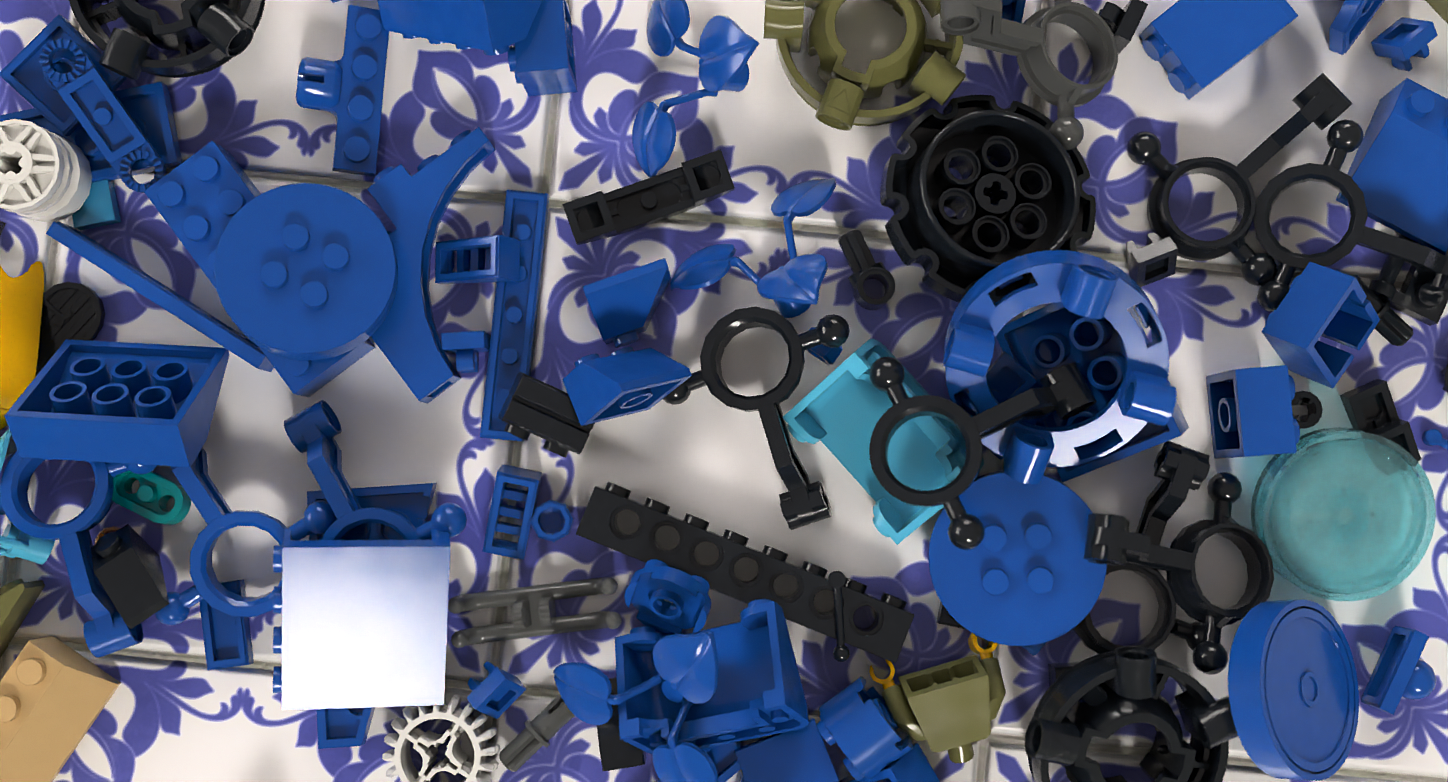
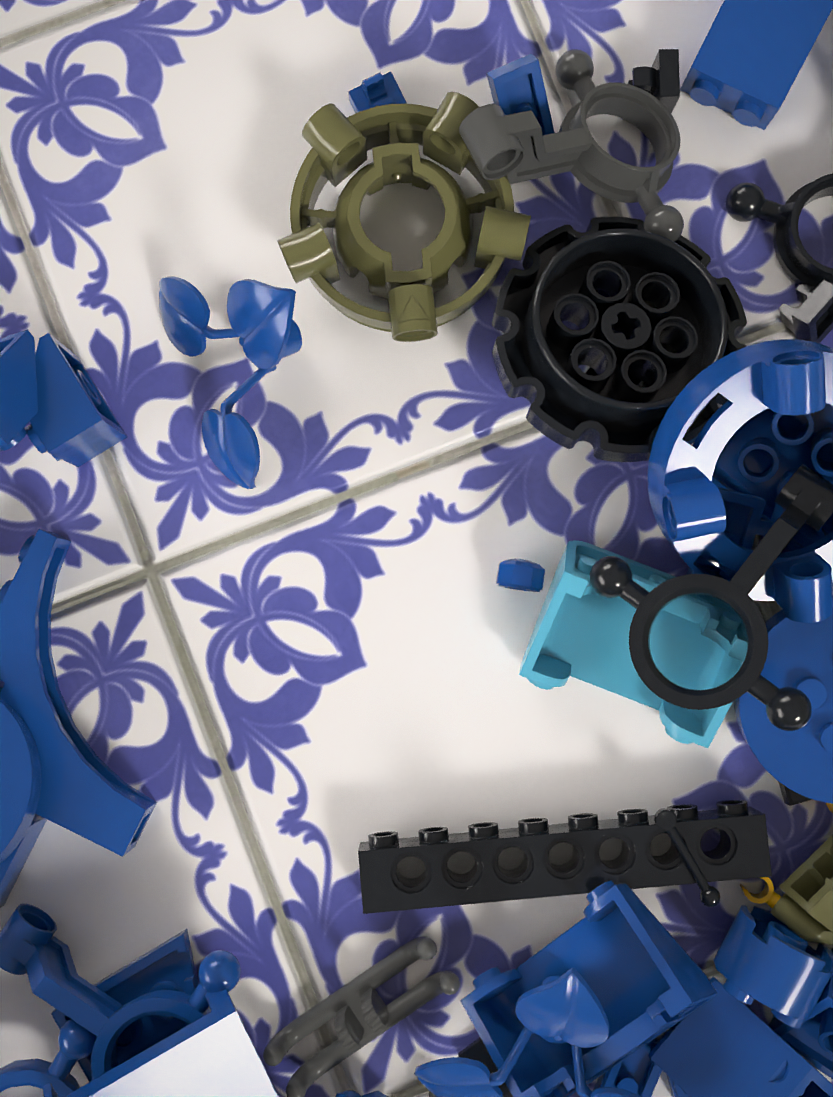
camera: 30 degrees left, 0 degrees up
(465, 347) = (146, 770): blue tile -> none
(501, 260) = (135, 657): blue slope -> none
(515, 308) = (180, 708): blue tile -> none
(517, 476) = (274, 886): blue slope -> none
(545, 412) = (268, 799): black brick -> none
(552, 520) = (330, 906): blue tile -> none
(621, 383) = (330, 726): blue slope -> none
(627, 301) = (292, 636): blue slope -> none
(650, 199) = (259, 514): black slope -> none
(659, 582) = (497, 929): blue plate -> none
(790, 286) = (456, 535): blue plant -> none
(803, 501) = (585, 751): black piece -> none
(865, 268) = (522, 471): black axle -> none

